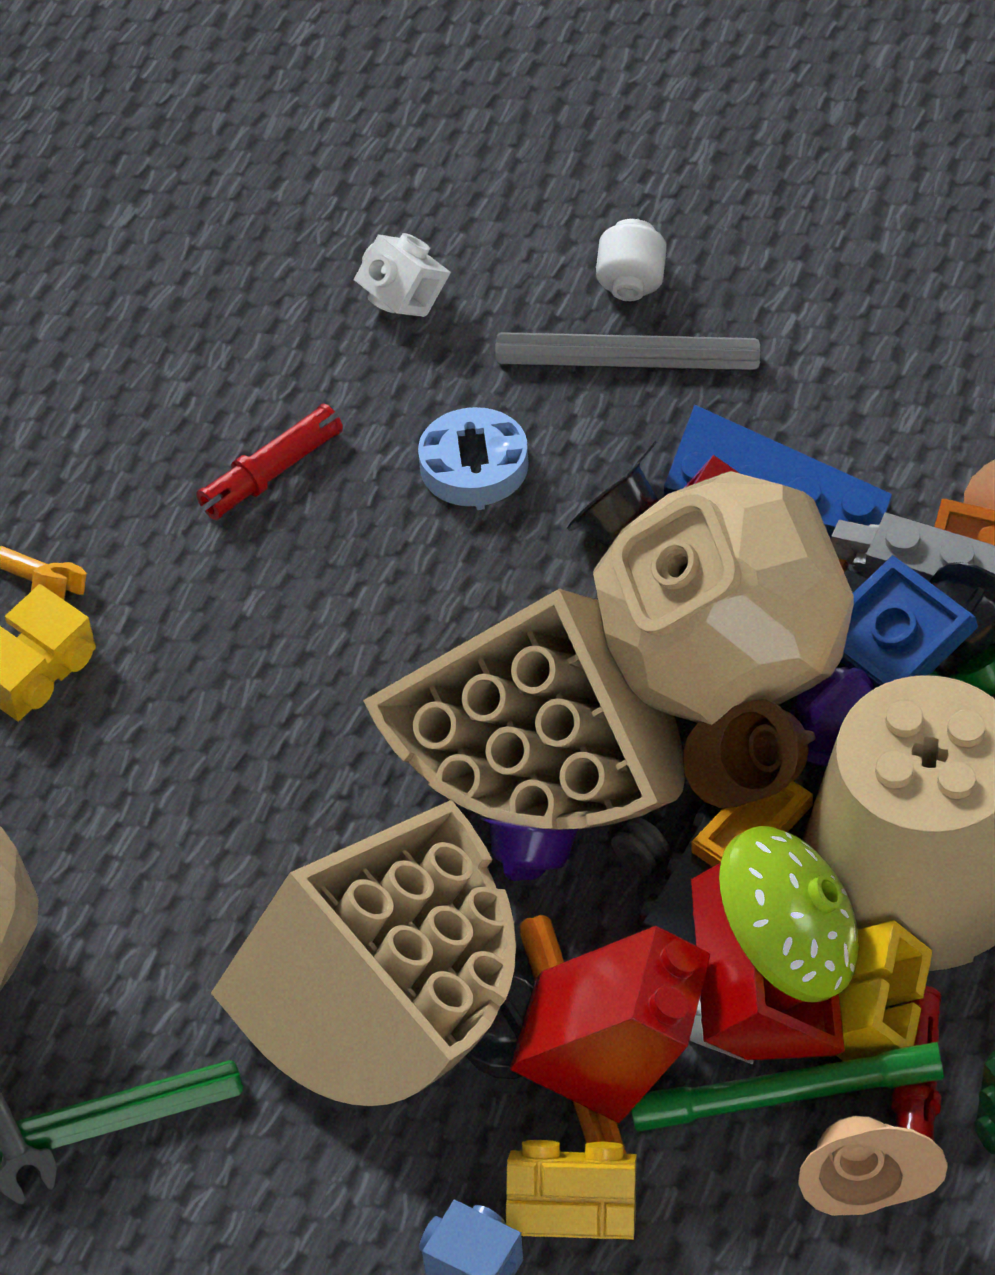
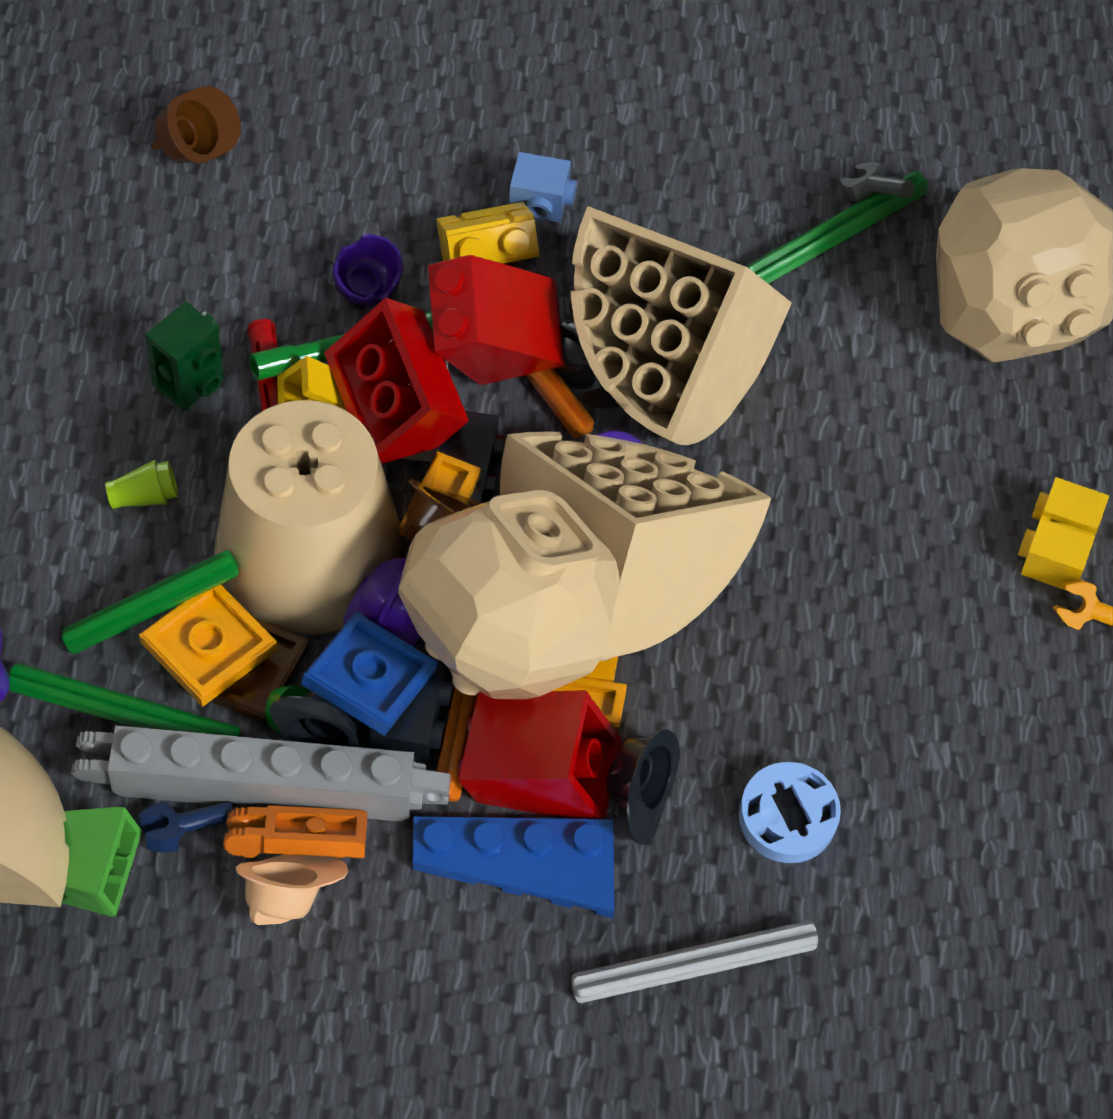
camera: 155 degrees right, 5 degrees up
(253, 473) = (968, 745): red pin -> none
(401, 275) = (931, 968): white brick -> none
(631, 259) = (725, 1049): white head -> none
(749, 1191) = (368, 270): none -> dark purple hair
(789, 913) = (392, 389): lime dish -> none
(869, 1167) = (291, 302): light nougat piece -> none

